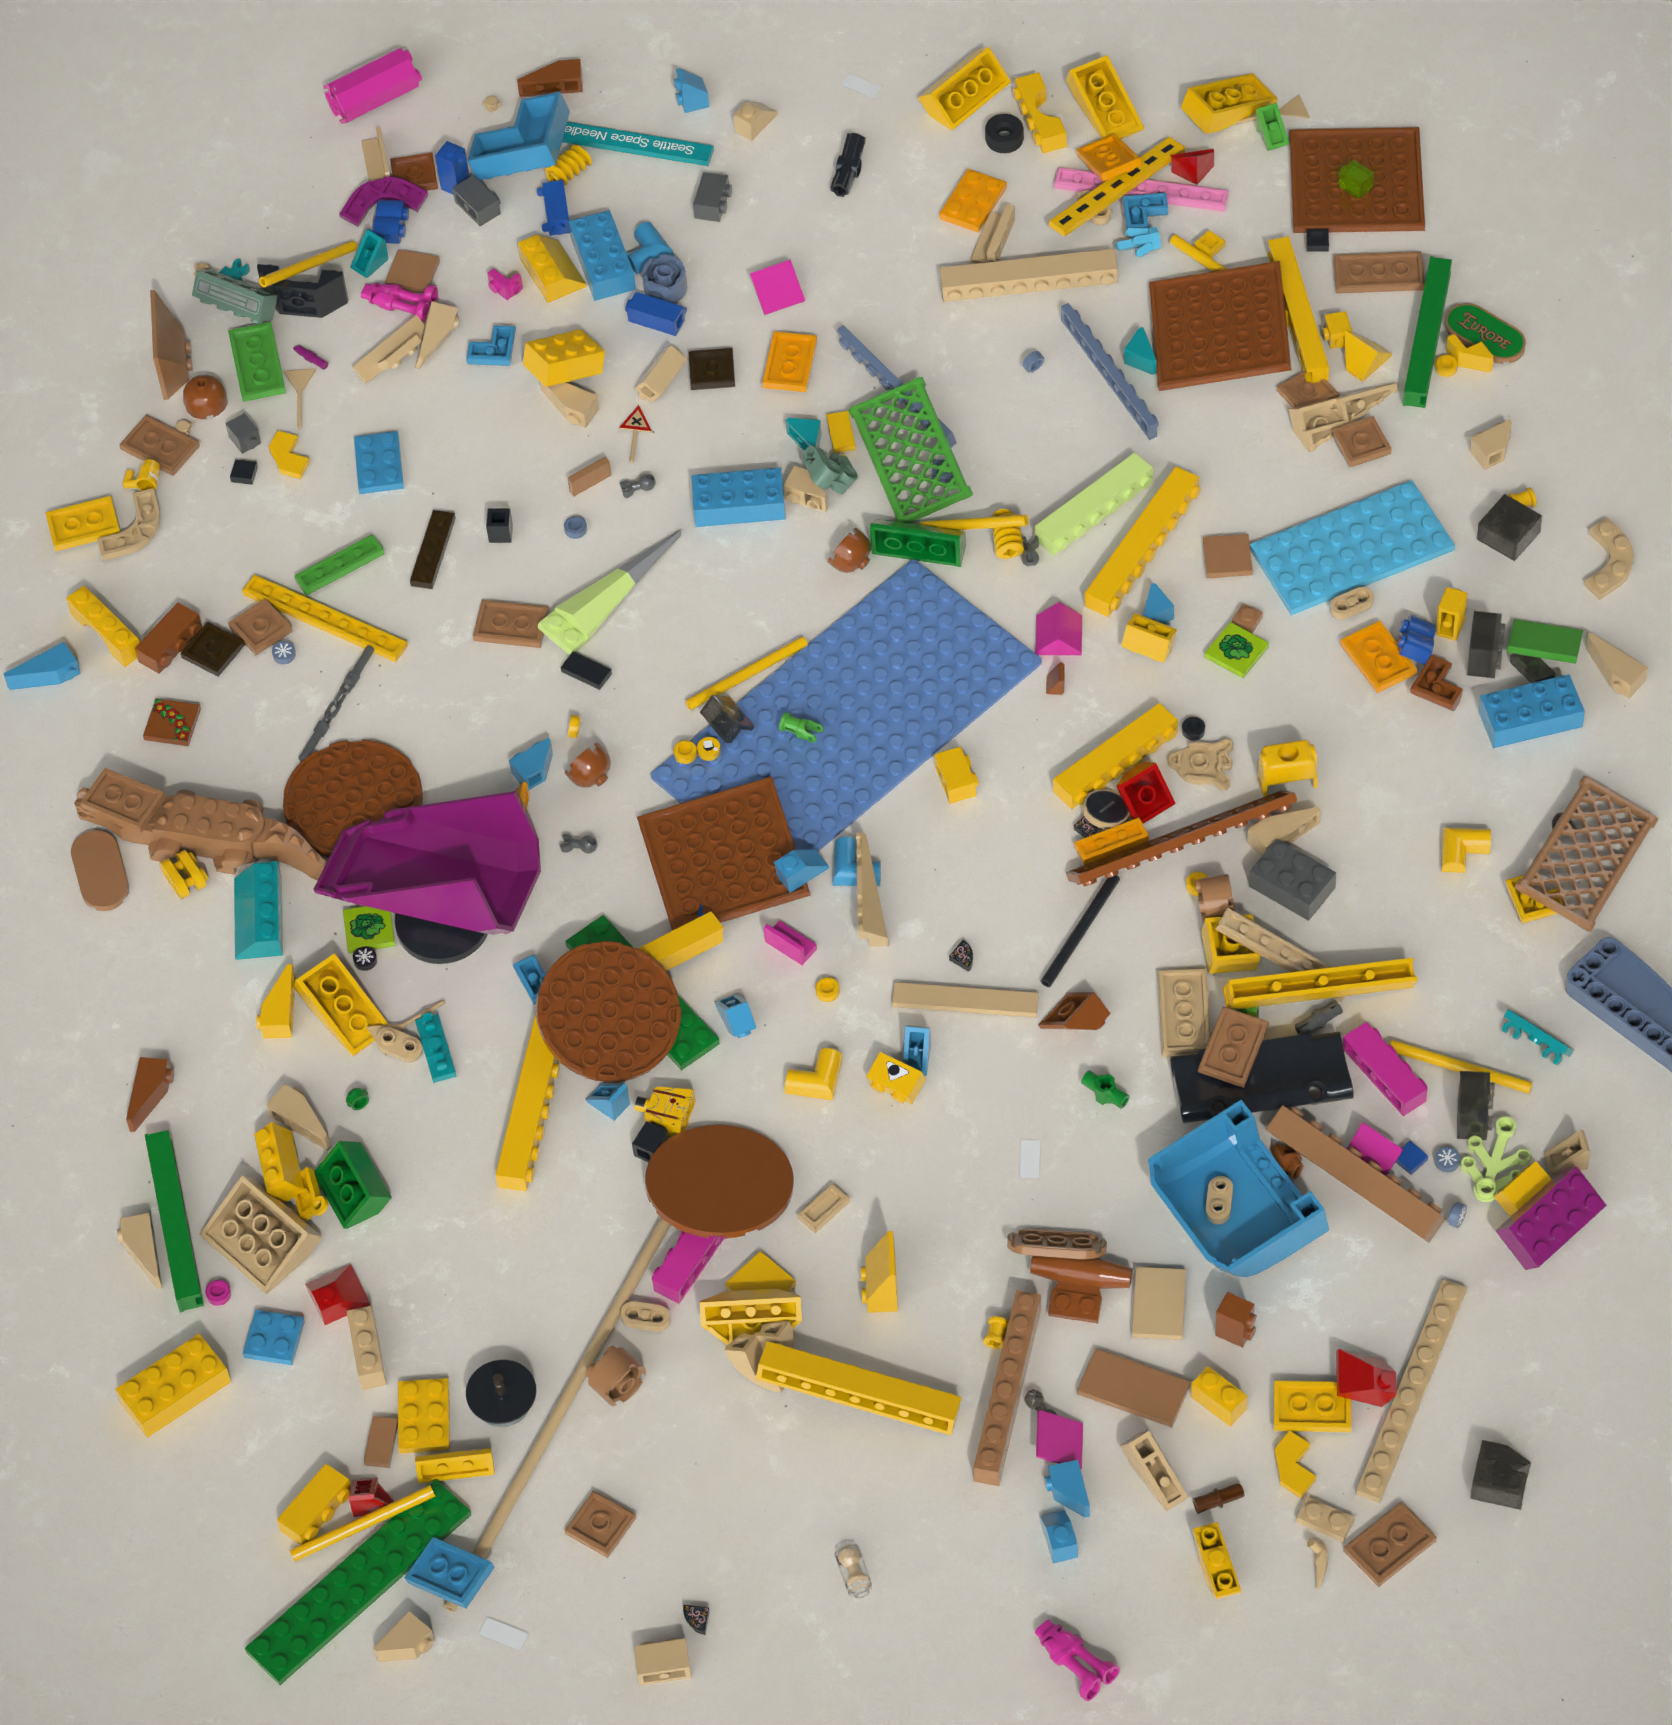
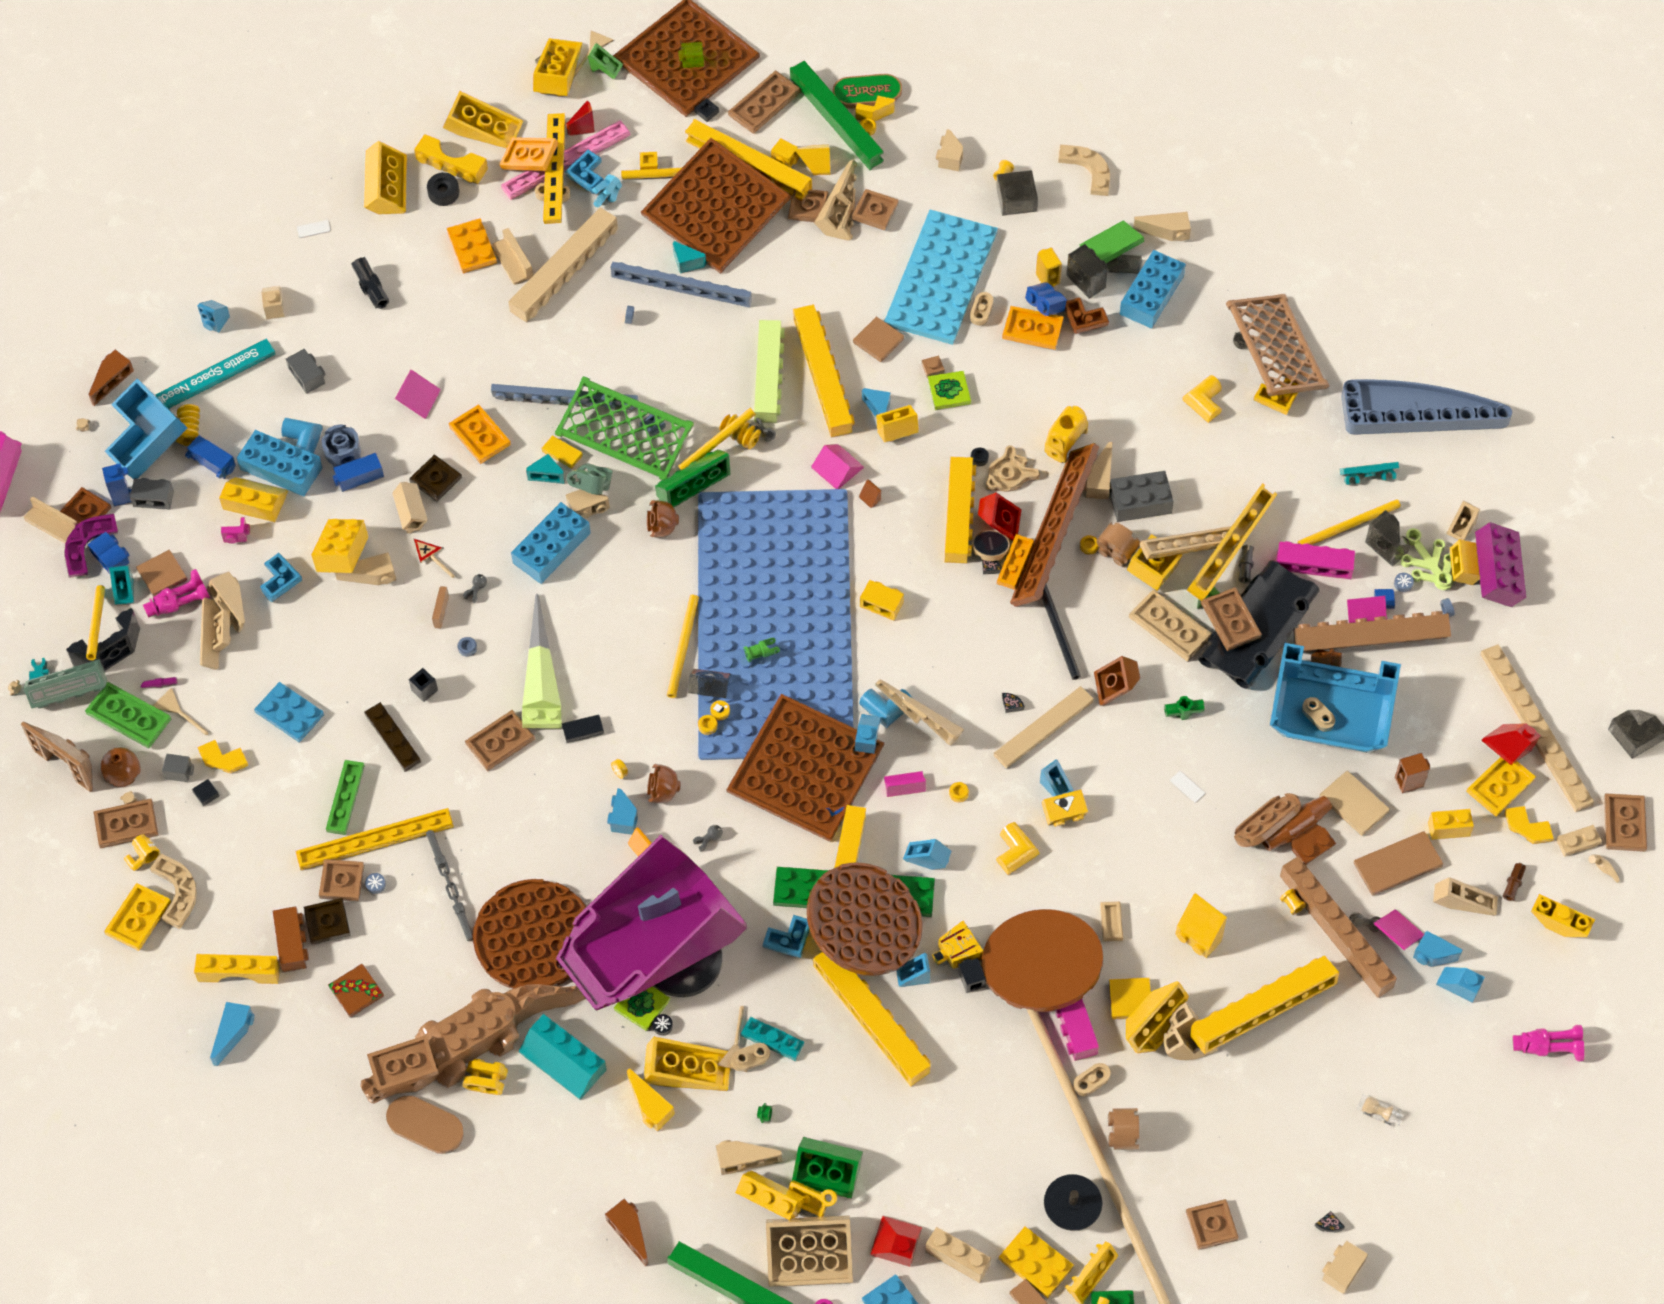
camera: 50 degrees left, 5 degrees up
(474, 862) = (657, 907): none -> sand blue slope

